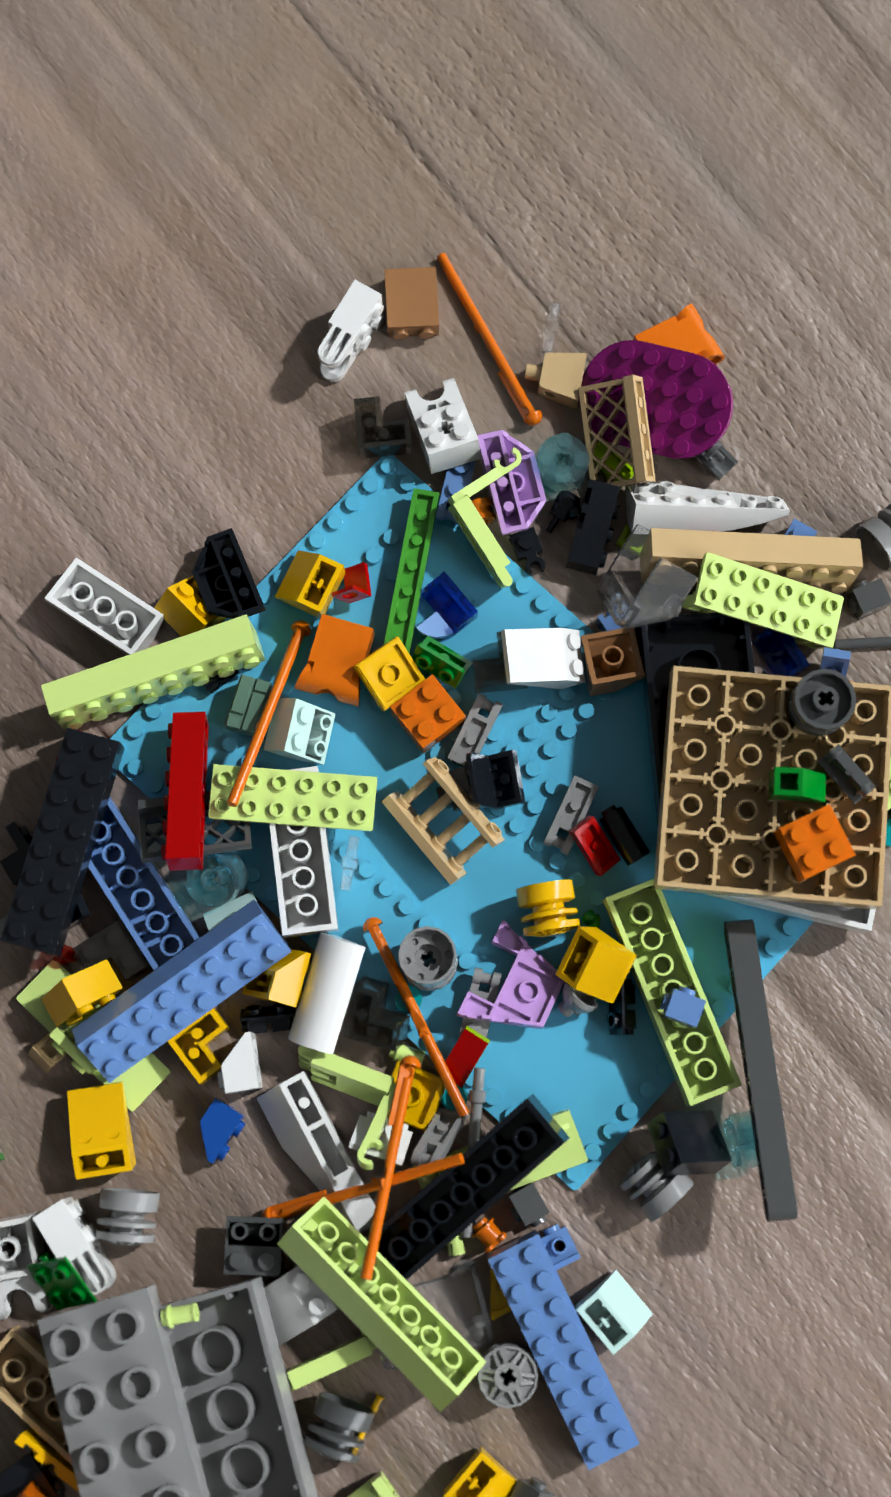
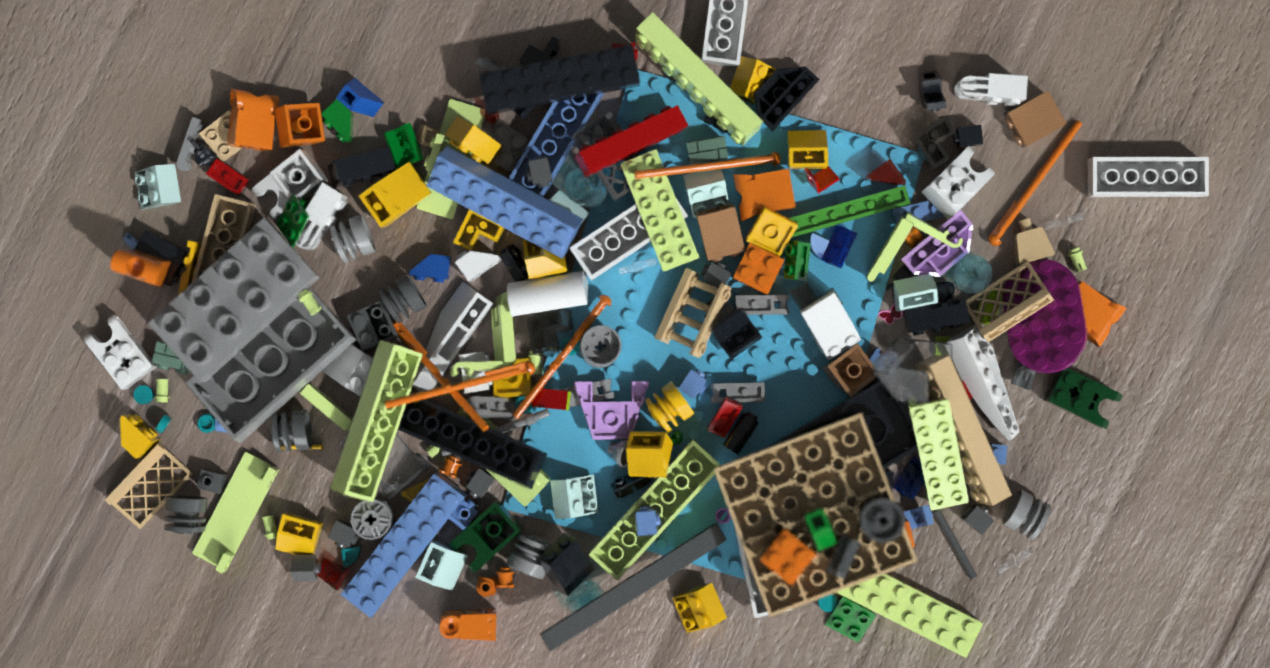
camera: 70 degrees right, 10 degrees up
(41, 1158) = (361, 167): none -> black wedge
(43, 1088) = (403, 145): none -> green bracket
(167, 925) = (539, 172): none -> dark grey brick
(238, 1188) = (402, 298): none -> dark grey wheel
(315, 405) = (931, 91): none -> black brick
(359, 737) = (720, 232): none -> medium nougat brick
(389, 502) = (887, 173): none -> clear red slope
(392, 387) = (968, 136): none -> black brick
(408, 769) = (715, 274): none -> dark grey brick
(509, 1425) = (343, 534): none -> dark grey brick
(533, 864) = (693, 383): none -> medium blue brick
(541, 1430) = (350, 555): none -> teal tile
(546, 206) = (1148, 177): none -> white brick
(552, 538) = (915, 292): none -> light aqua slope
(555, 1466) = (333, 573): none -> clear red slope
(565, 582) = (890, 316): none -> dark red sticker
(603, 1236) = (484, 539): none -> dark green brick
(604, 333) = (1076, 257): none -> yellowish green pin
(605, 1089) = (574, 496): none -> light aqua slope
(659, 1265) = (484, 580): none -> orange brick
(668, 1234) = (504, 578): none -> orange brick
(709, 1312) = (469, 624): none -> orange piece
(713, 910) = (720, 512): none -> medium lavender hinge
(779, 402) = (1085, 399): none -> dark green brick
(824, 998) = (699, 608): none -> yellow slope

